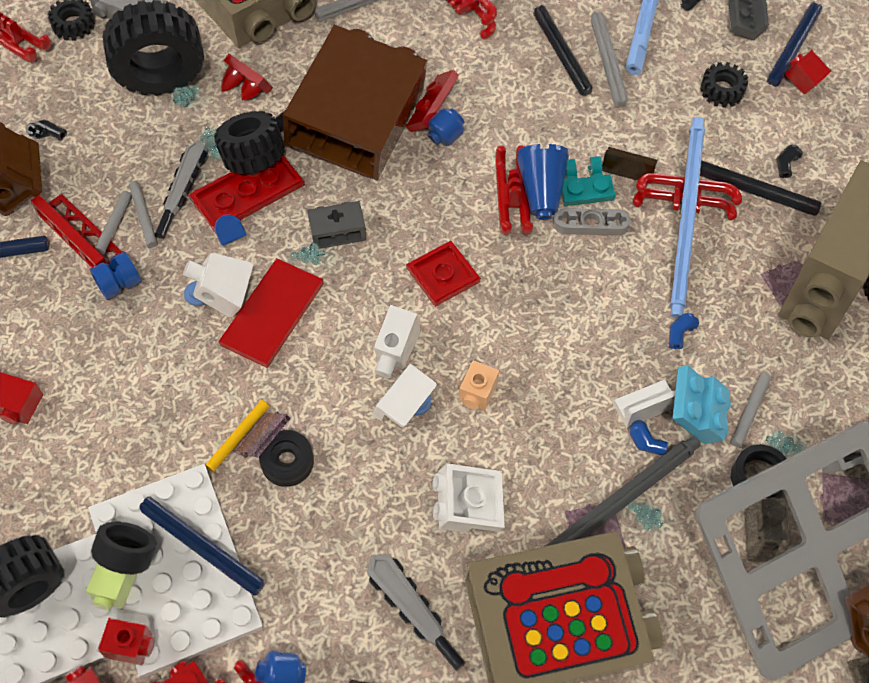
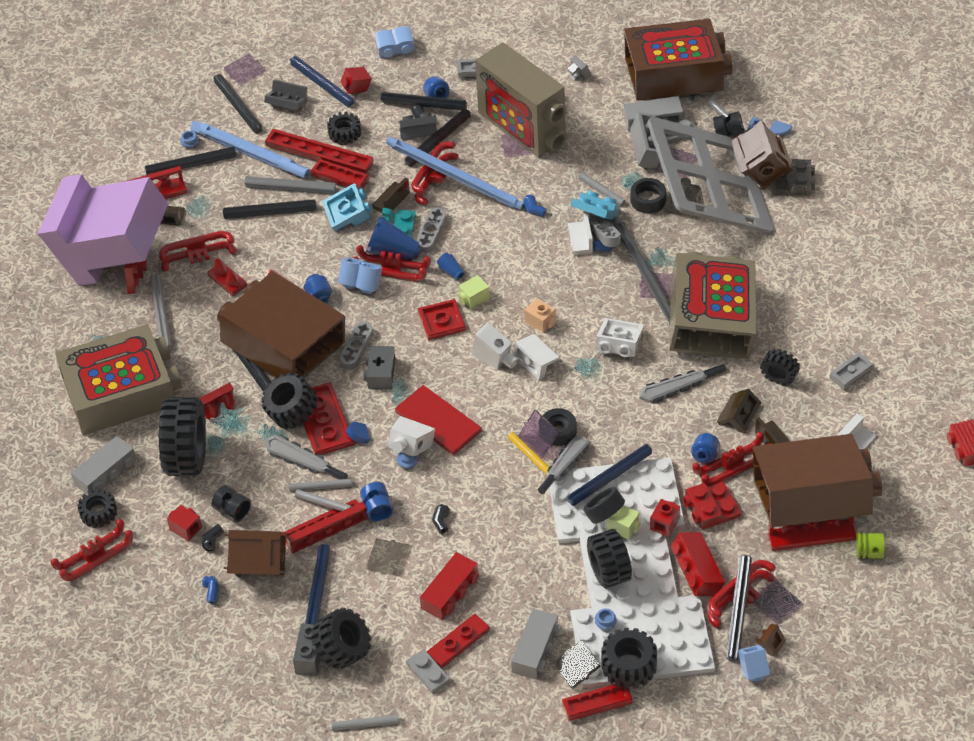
camera: 70 degrees left, 10 degrees down
(42, 314) = (387, 557): none -> clear smoke piece
(59, 97) = (184, 522): none -> red brick
(90, 131) = (231, 503): none -> black wheel
(107, 352) = (438, 518): none -> black arm
(221, 97) = (228, 419): none -> clear light blue animal
(237, 485) = (565, 461): none -> light grey sword
(365, 184) = (355, 337): none -> light grey beam
(412, 468) = (585, 364): none -> clear light blue hair
(439, 39) = (226, 278): none -> red tile
(478, 161) = (359, 274): none -> light blue brick
(494, 295) = (473, 292): none -> yellowish green brick
(534, 257) = (450, 266): none -> blue cone
(589, 122) = (347, 207): none -> medium azure plate
(643, 102) = (339, 174): none -> red plate
(657, 438) = (604, 231): none -> light grey beam
(674, 72) = (317, 150): none -> red plate
(761, 159) = (417, 127): none -> dark grey bracket
(810, 155) = (424, 101): none -> black axle
(837, 161) = (436, 87): none -> blue head

